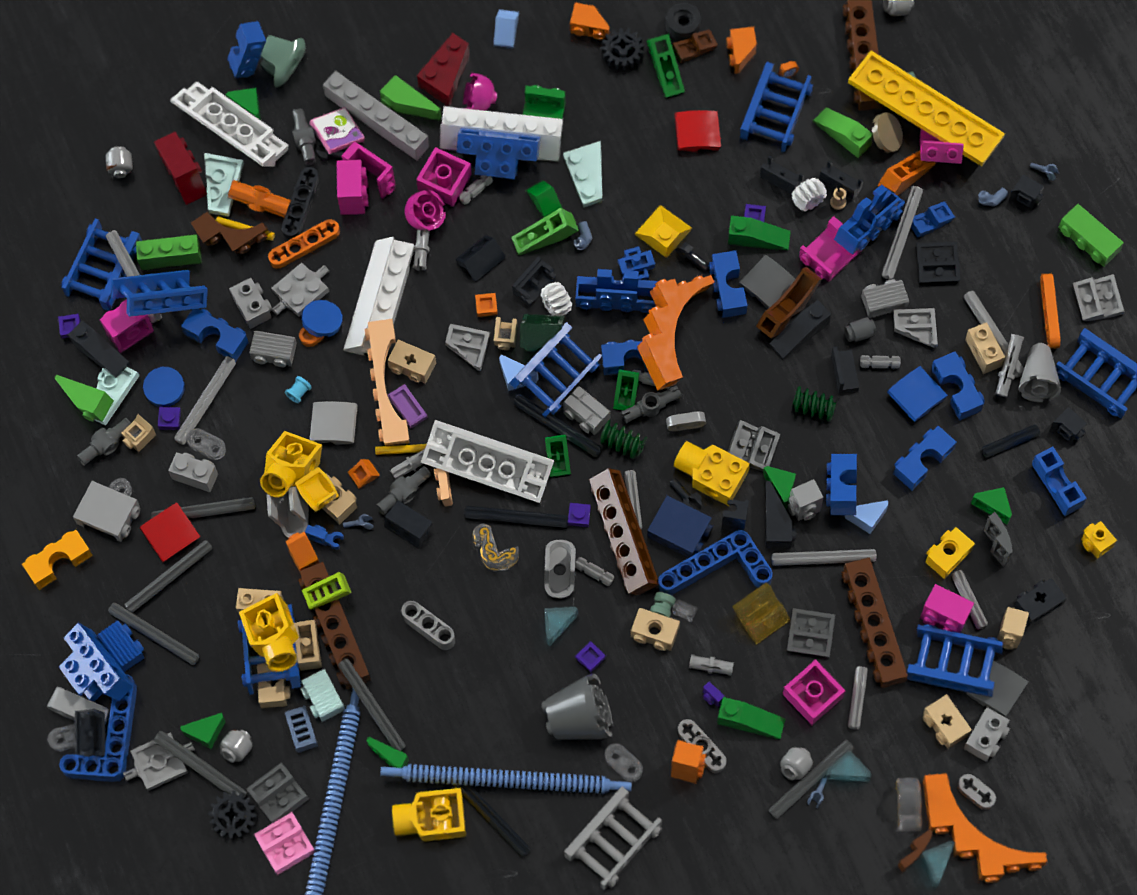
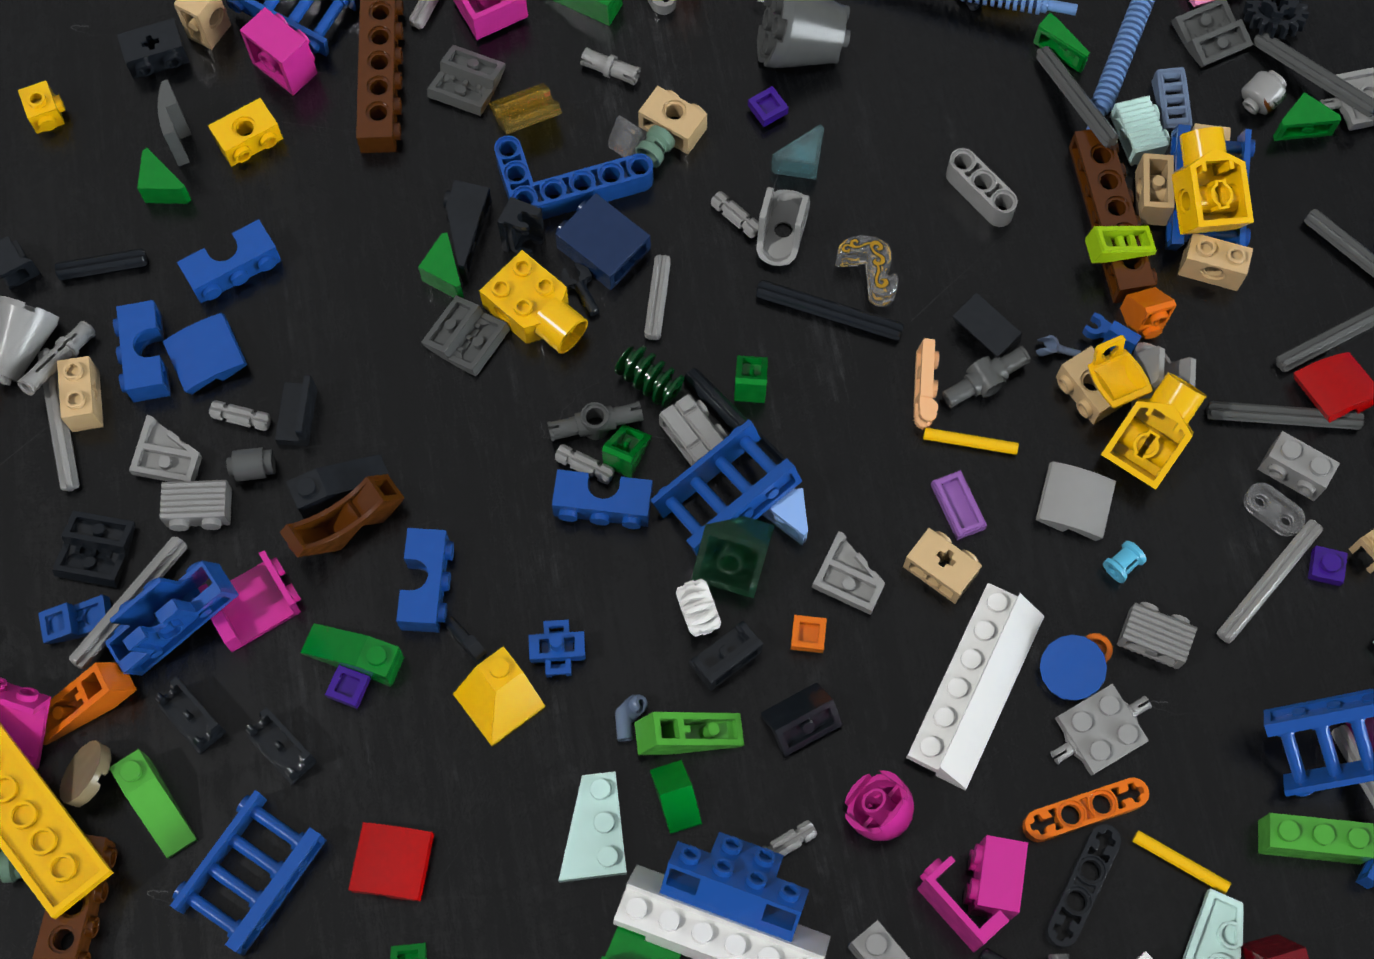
camera: 170 degrees left, 0 degrees up
(163, 386) = (1334, 617): blue tile -> none
(201, 324) = (1223, 666): blue arch -> none
(238, 239) = (1239, 860): reddish brown arch -> none
(250, 302) = (1185, 719): light grey brick -> none
(259, 198) = (1172, 909): orange piece -> none
(363, 473) = (1039, 420): orange slope -> none
(381, 336) = (988, 591): light nougat arch -> none
(408, 465) = (968, 413): light grey axle -> none
(421, 249) = (895, 750): light grey pin -> none
(444, 175) = (835, 865): dark pink brick -> none
(487, 461) = (859, 378): white slope -> none
(505, 334) = (788, 578): tan window -> none
(579, 514) = (738, 294): dark purple plate -> none
(613, 293) = (600, 599): blue piece -> none
(625, 520) = (682, 248): reddish brown brick -> none
(659, 346) = (545, 519): orange arch -> none
(685, 421) = (551, 386): light grey beam -> none
(712, 694) = (619, 27): dark purple plate -> none
(767, 281) = (363, 572): dark grey slope -> none
(788, 69) = (205, 938): orange tile -> none
(805, 501) = (416, 226): light grey brick -> none
(809, 194) = (249, 693): white gear -> none
(815, 404) = (357, 369): dark green piece -> none
(822, 557) = (416, 167): light grey axle -> none
(838, 200) = (206, 680): tan pin -> none
(842, 471) = (354, 263): blue arch -> none
(868, 515) = (336, 203): light blue slope -> none
(966, 592) = (243, 73): light grey axle -> none
(1050, 470) = (62, 195): blue arch -> none

